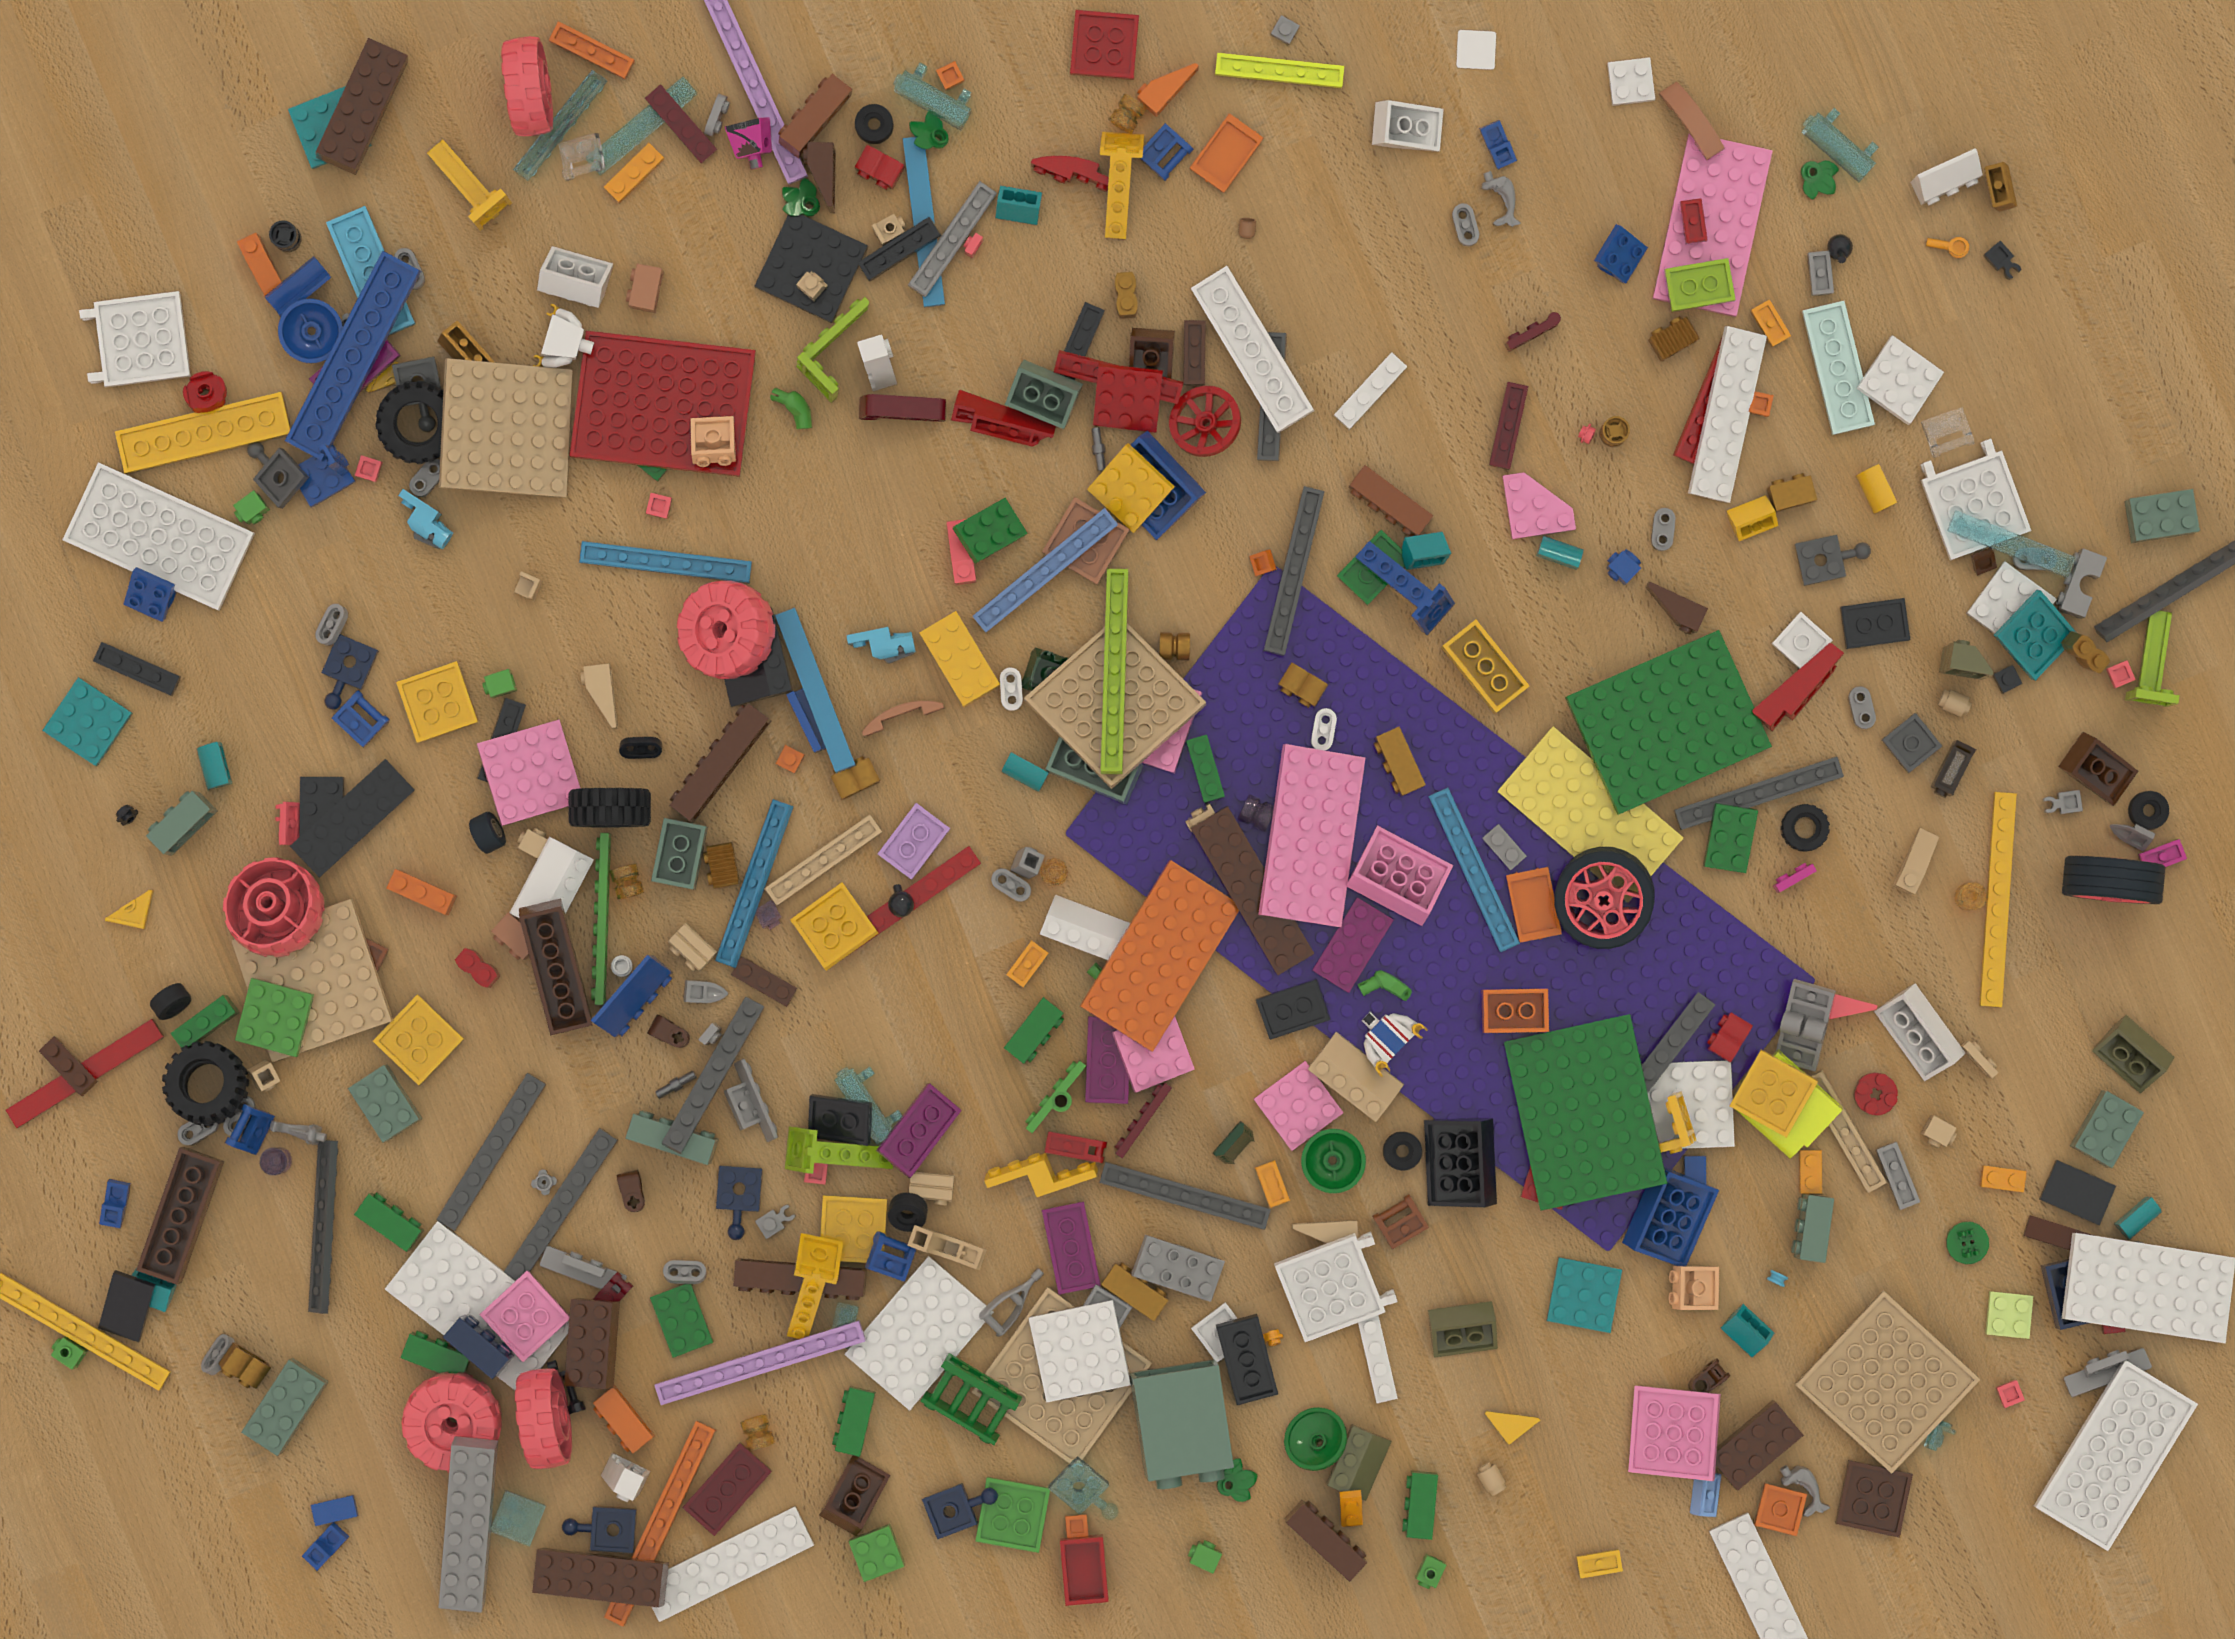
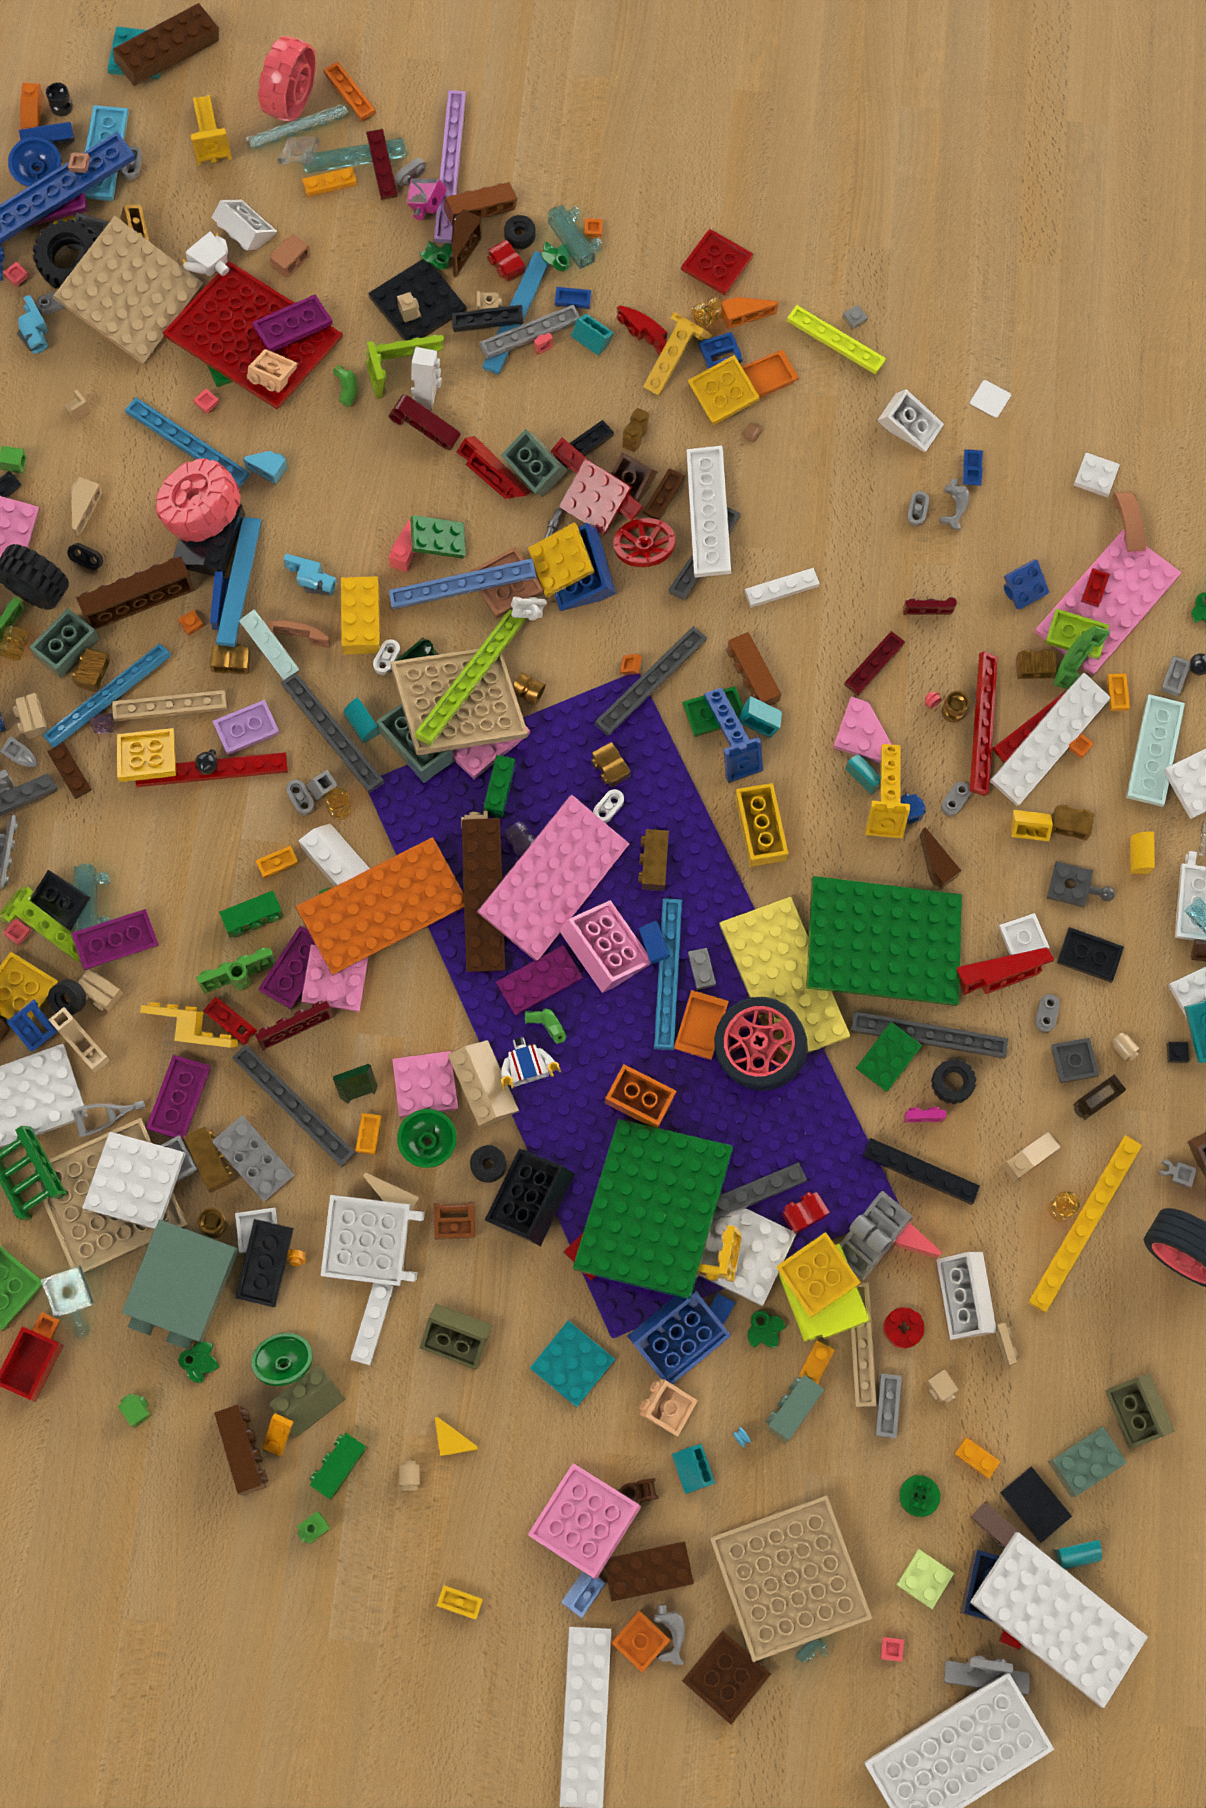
camera: 25 degrees right, 15 degrees down
(366, 312) = (79, 162): none -> nougat plate
(700, 371) = (292, 323): none -> magenta plate
(767, 544) = (267, 465): none -> medium azure slope
(888, 743) = (269, 644): none -> light aqua plate
(973, 171) = (569, 296): none -> blue tile
(1004, 800) = (332, 732): none -> dark grey plate
(1128, 560) = (528, 608): none -> white hips
(1175, 1349) = (212, 1222): none -> pearl gold wheel
(1193, 197) = (723, 390): none -> yellow plate
(1293, 1009) = (464, 1005): black tile -> none
(1444, 846) = (654, 942): none -> blue tile
(1608, 589) = (888, 815): none -> yellow bracket
(1651, 433) = (983, 724): none -> red plate
(1709, 330) = (1077, 654): none -> bright green slope
(1749, 1167) = (767, 1332): none -> green plate
(1817, 934) = (921, 1171): none -> black plate
(1964, 660) = (1151, 1015): olive slope -> none

